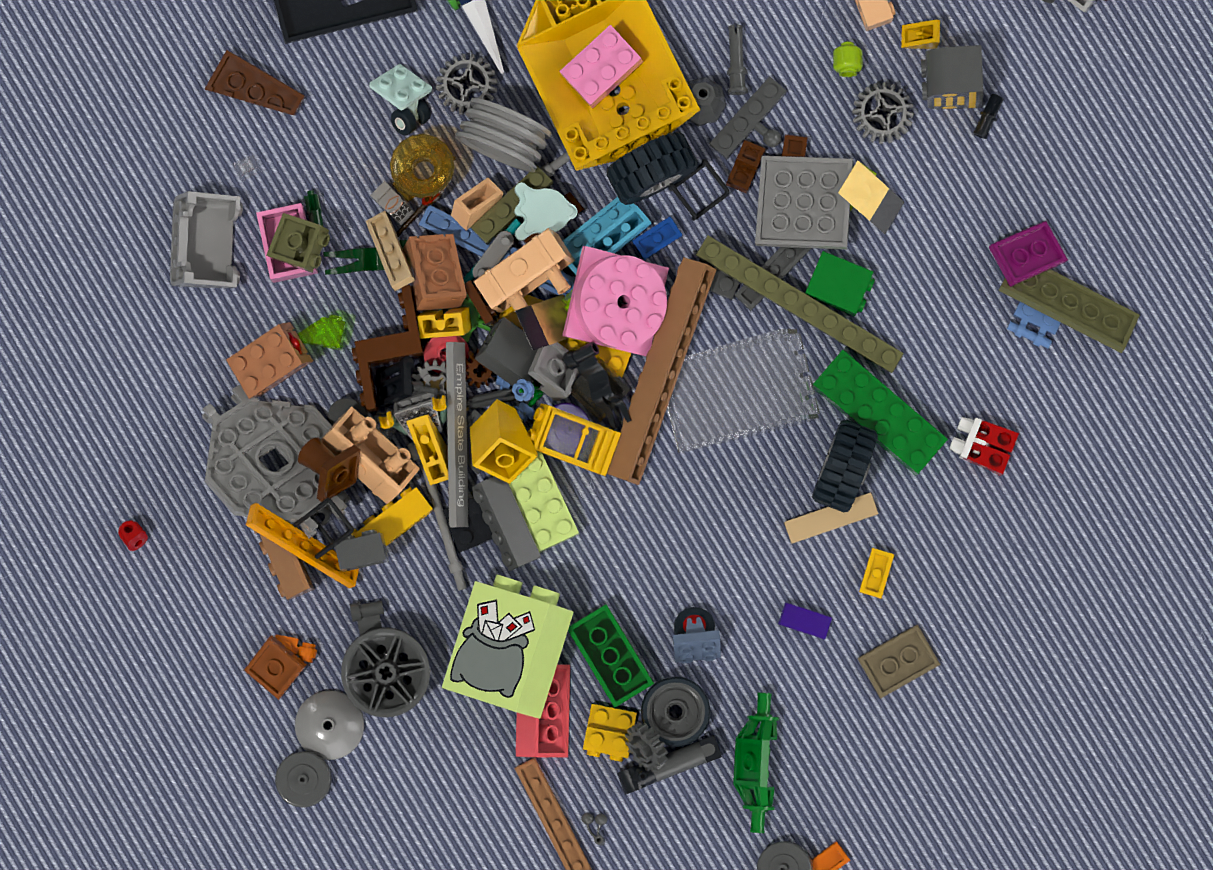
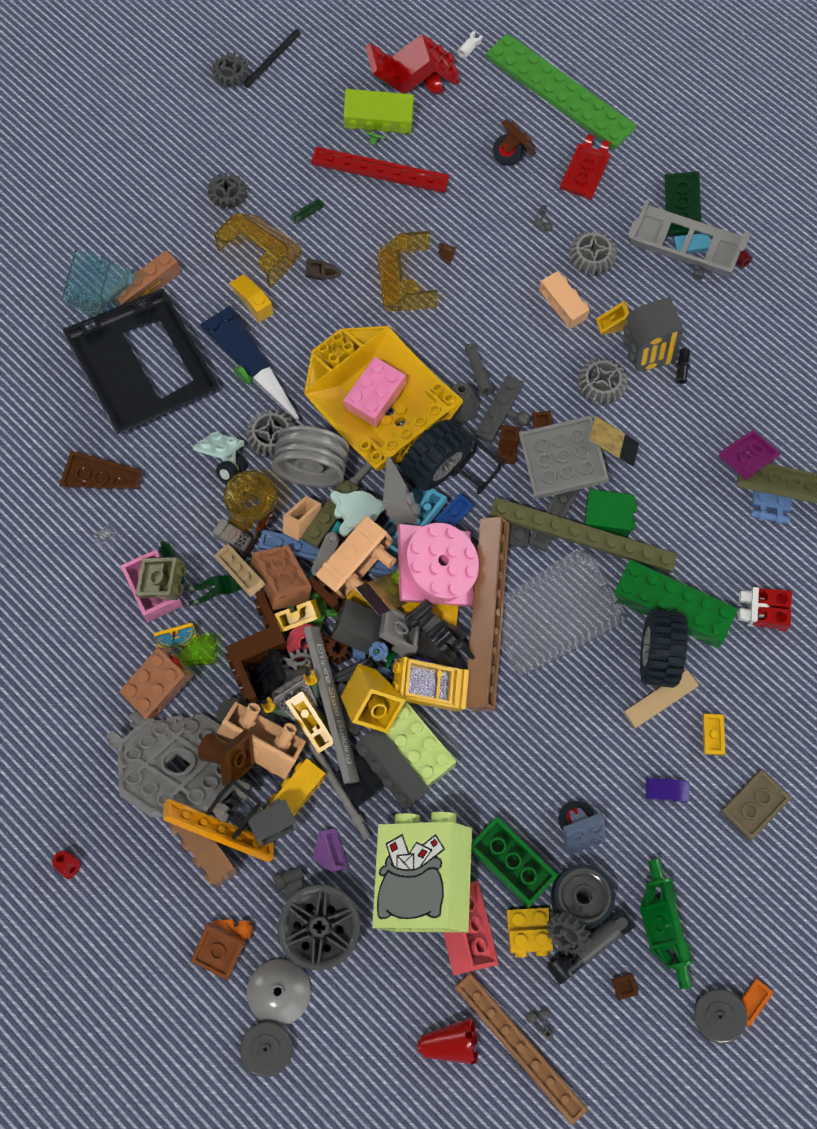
camera: 20 degrees left, 15 degrees down
(204, 240) = (81, 600): light grey windscreen -> none
(302, 309) = (175, 636): none -> slope
(417, 593) = (329, 851): none -> medium lavender slope
(496, 823) = (451, 1043): none -> red cone
(593, 209) = (397, 498): none -> light grey slope
(694, 813) = (624, 986): none -> reddish brown tile
(847, 59) = (563, 349): lime head -> none

